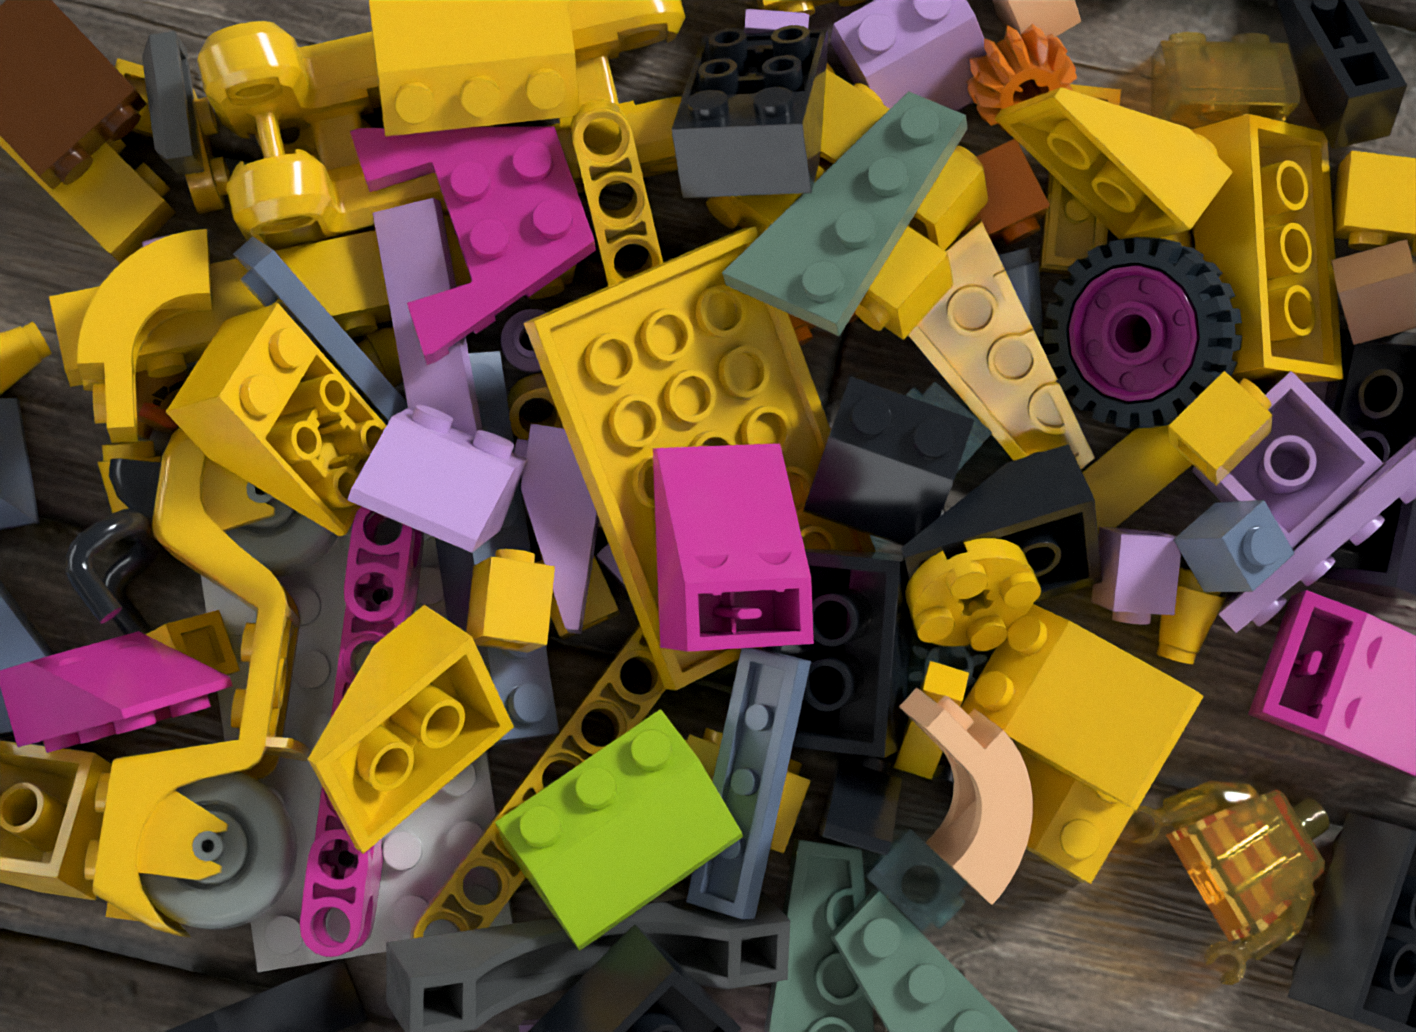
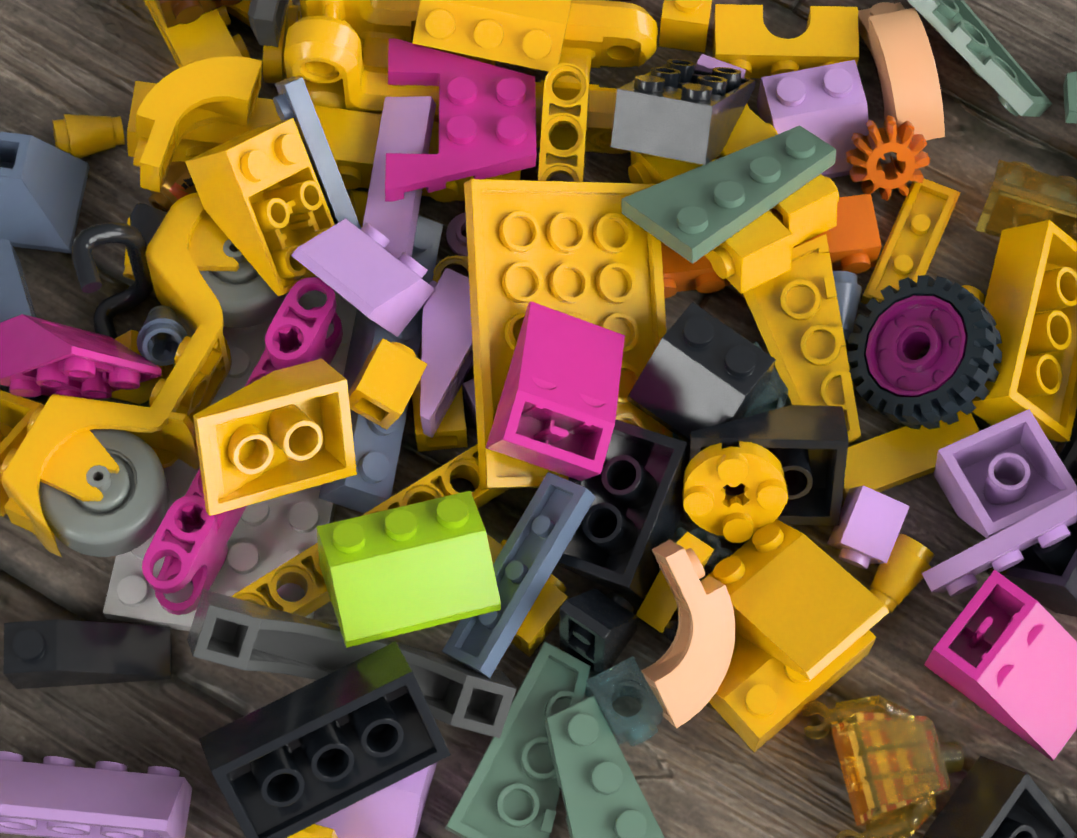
camera: 20 degrees right, 15 degrees down
(209, 623) = (160, 336): none -> sand blue cone
(1120, 163) = (939, 217): yellow slope -> none
(1222, 426) = (962, 426): yellow brick -> none
(1234, 546) = (947, 519): sand blue brick -> none

